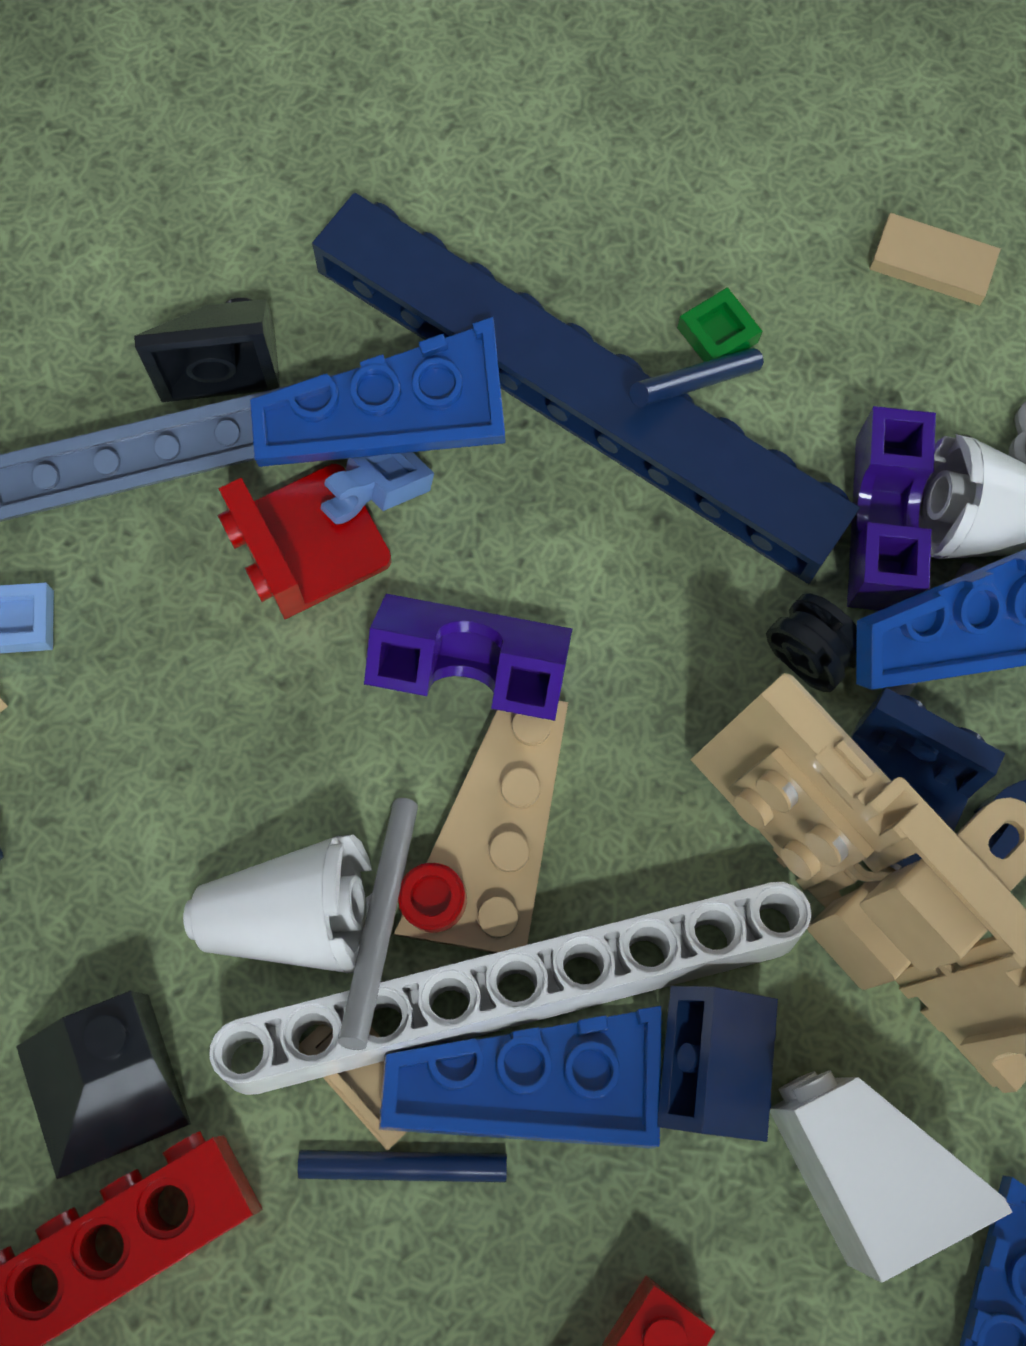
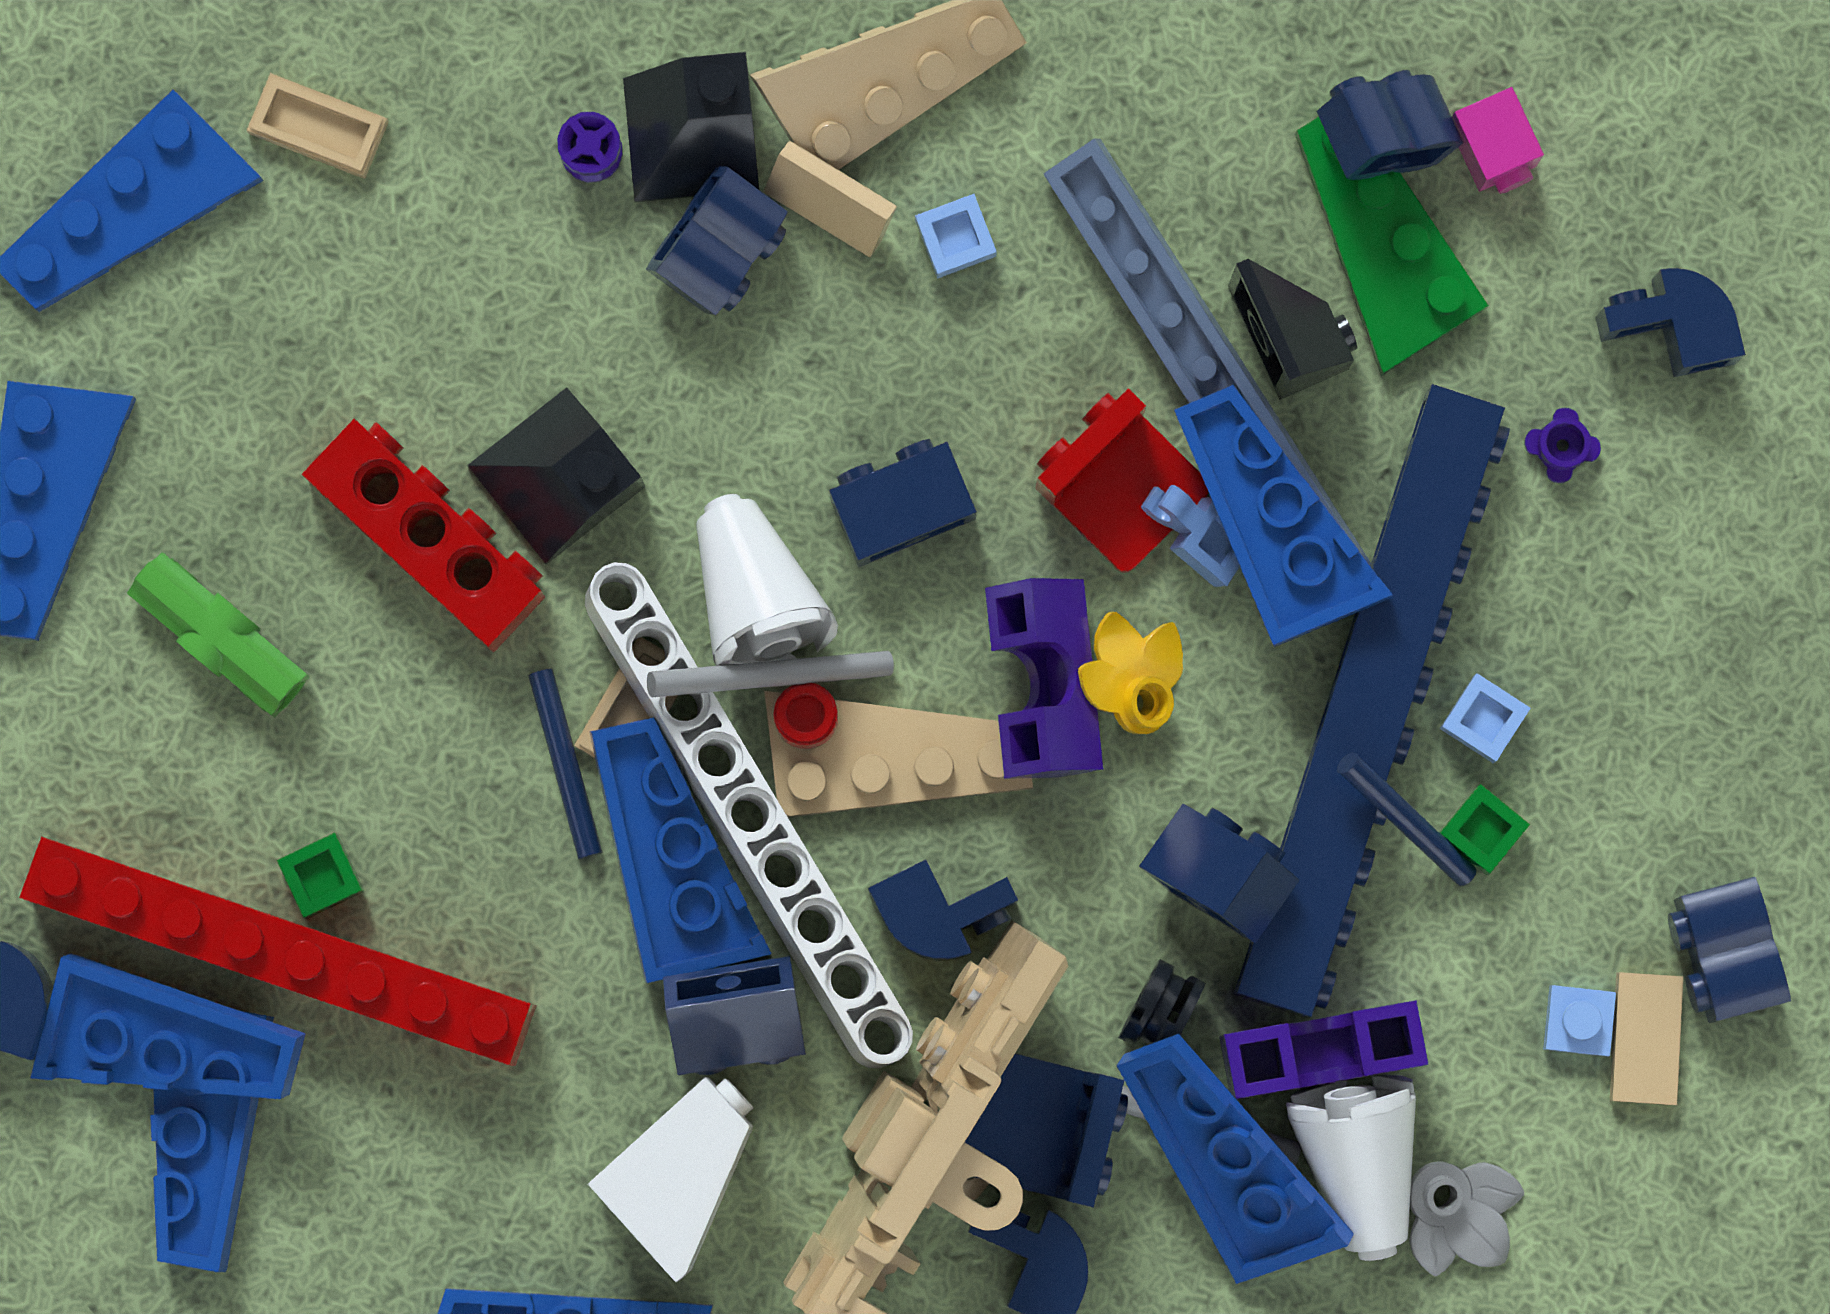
camera: 75 degrees right, 10 degrees up
(66, 213) = (1388, 125): none -> dark blue brick
(119, 144) = (1498, 142): none -> dark pink brick
(168, 261) = (1392, 254): none -> green wing
(252, 742) = (902, 501): none -> dark blue brick
(326, 45) = (1694, 318): none -> dark blue brick
(400, 161) = (1565, 427): none -> dark purple plate
(489, 578) = (1132, 667): none -> yellow plate
(621, 300) = (1485, 718): none -> light blue plate
(670, 841) = (926, 924): none -> dark blue brick
(702, 545) = (1220, 871): none -> dark blue brick
(878, 167) = (1729, 950): none -> dark blue brick
(906, 305) = (1579, 1020): none -> light blue plate

